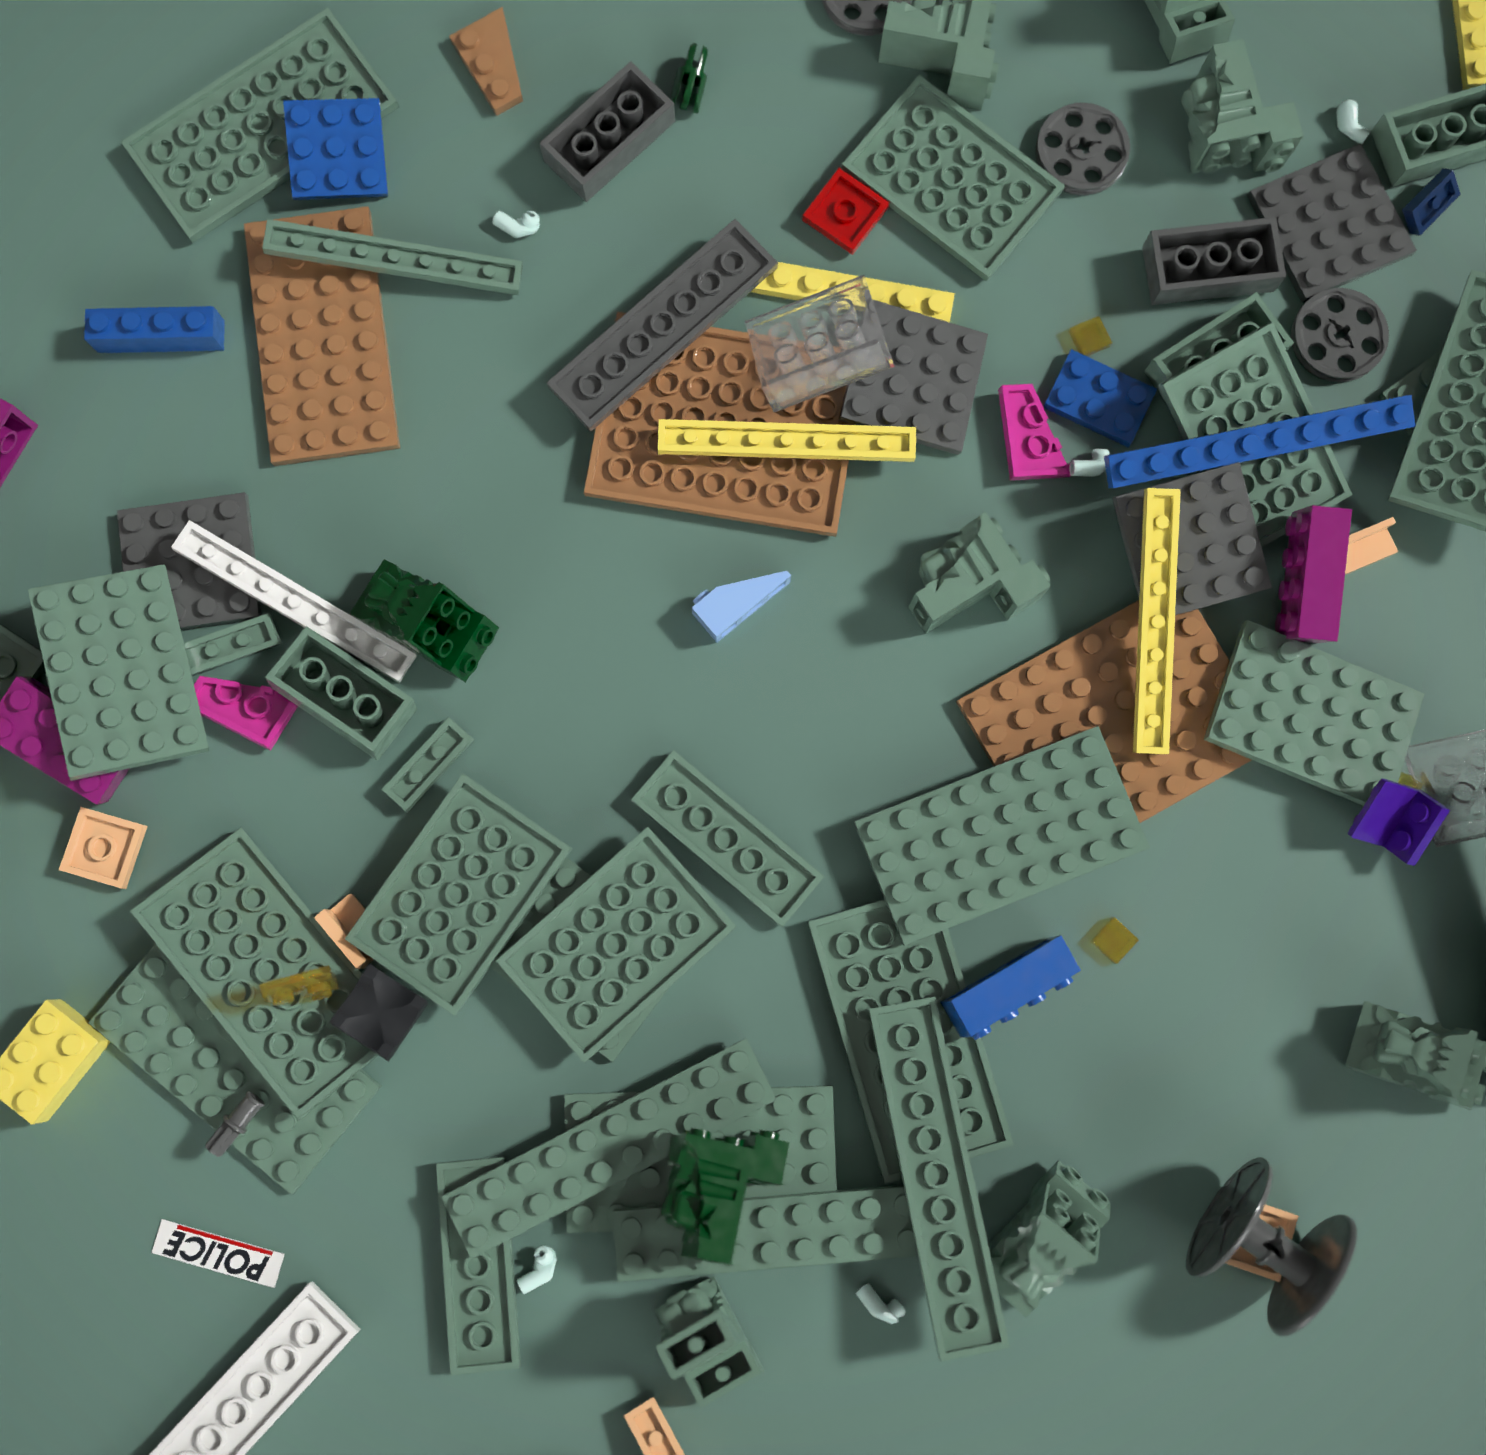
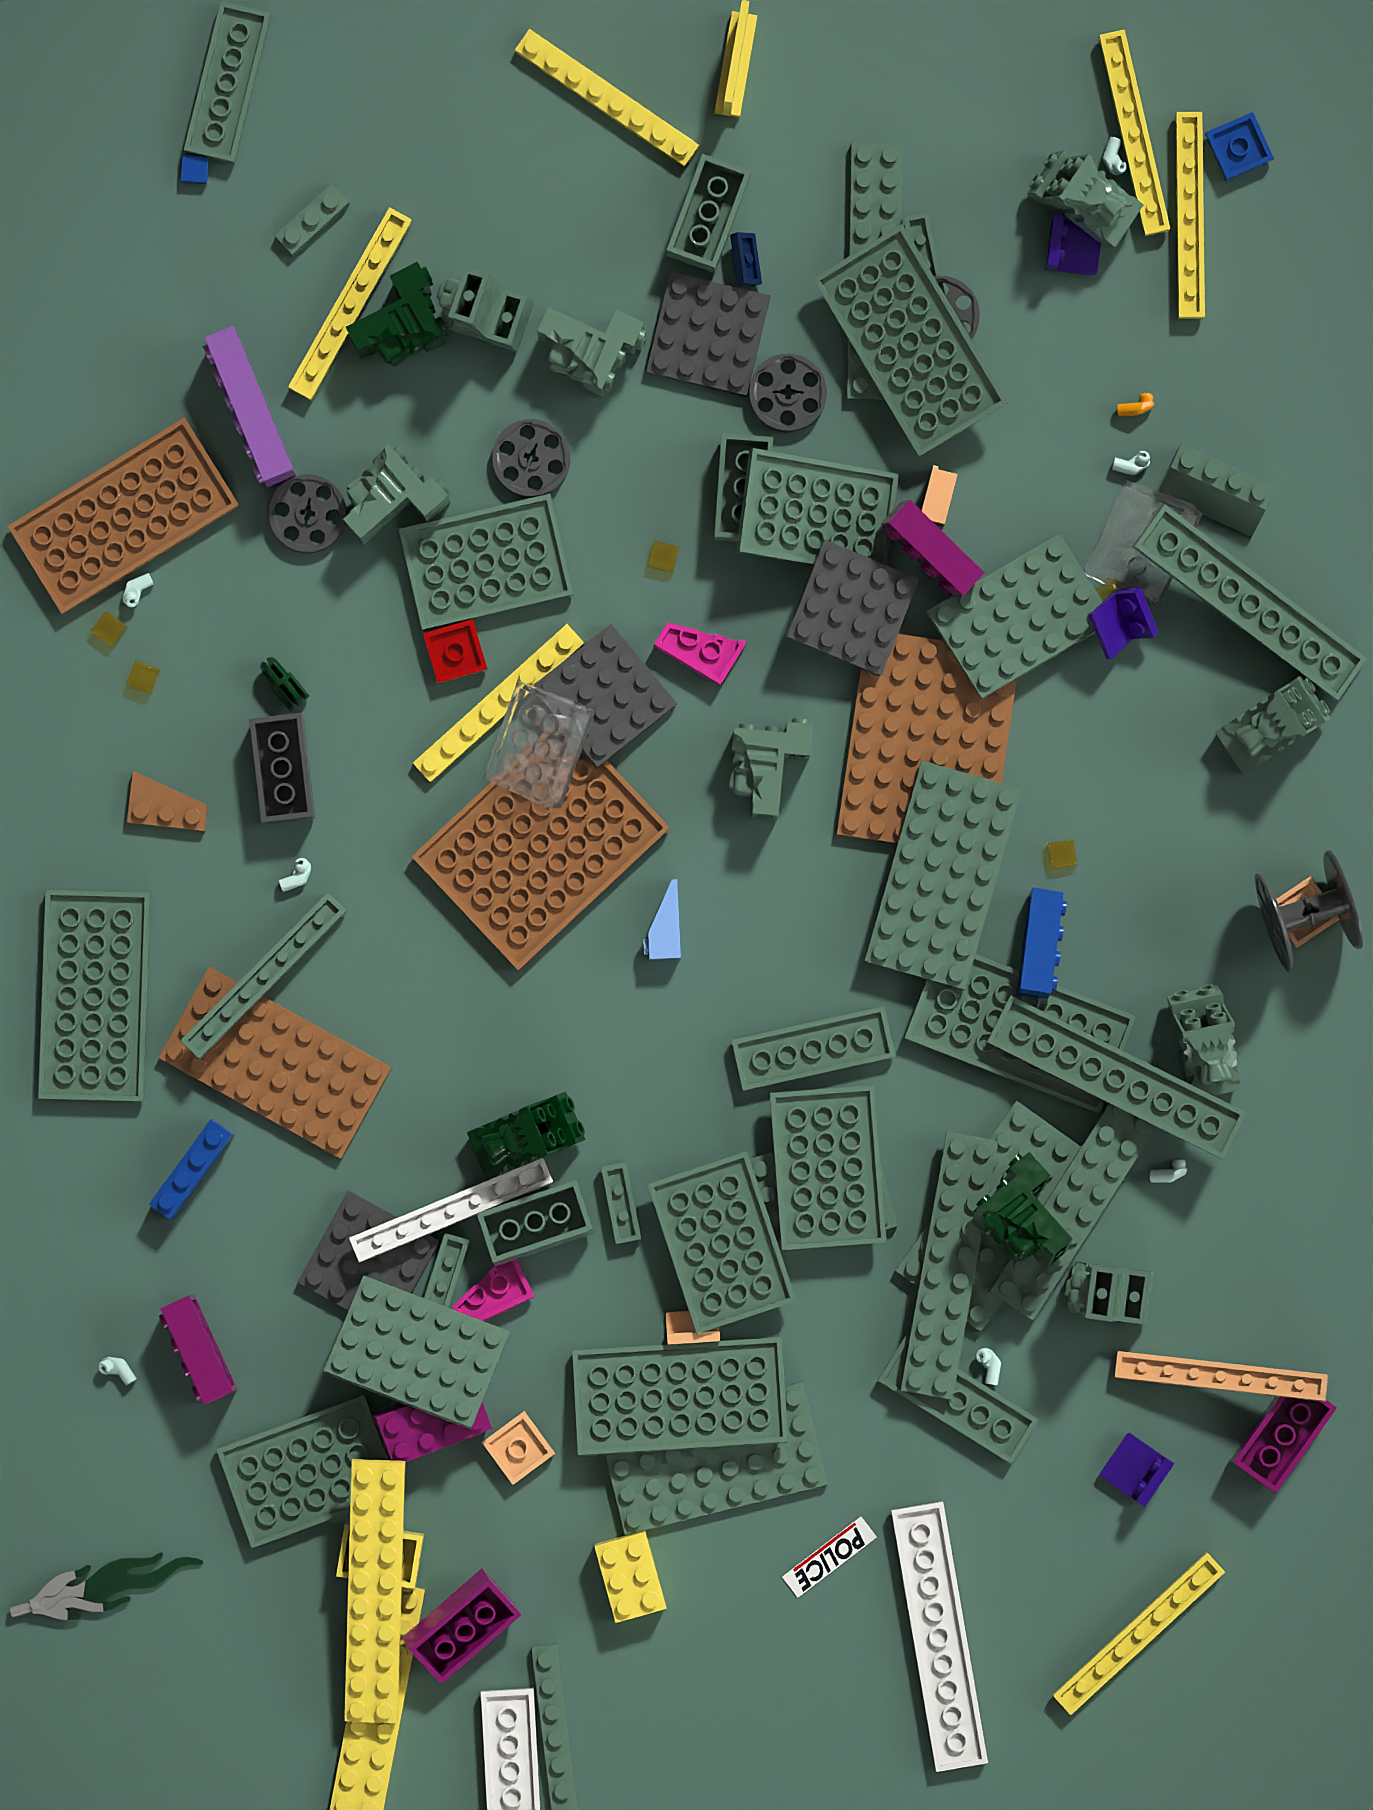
camera: 55 degrees left, 5 degrees up
(234, 1124) = (760, 1485): dark grey axle -> none
(313, 983) = (714, 1370): clear yellow plate -> none
(335, 148) = (155, 958): blue plate -> none
(379, 1012) = (760, 1345): black brick -> none
(662, 325) = (446, 834): dark grey plate -> none
(787, 440) = (586, 813): light yellow plate -> none
(1089, 467) = (752, 624): light aqua arm -> none
(1100, 398) = (709, 583): blue plate -> none
(1156, 620) = (885, 673): light yellow plate -> none
(1213, 261) = (677, 439): dark grey brick -> none
(1259, 441) = (821, 513): blue plate -> none
(1348, 121) = (648, 266): light aqua arm -> none

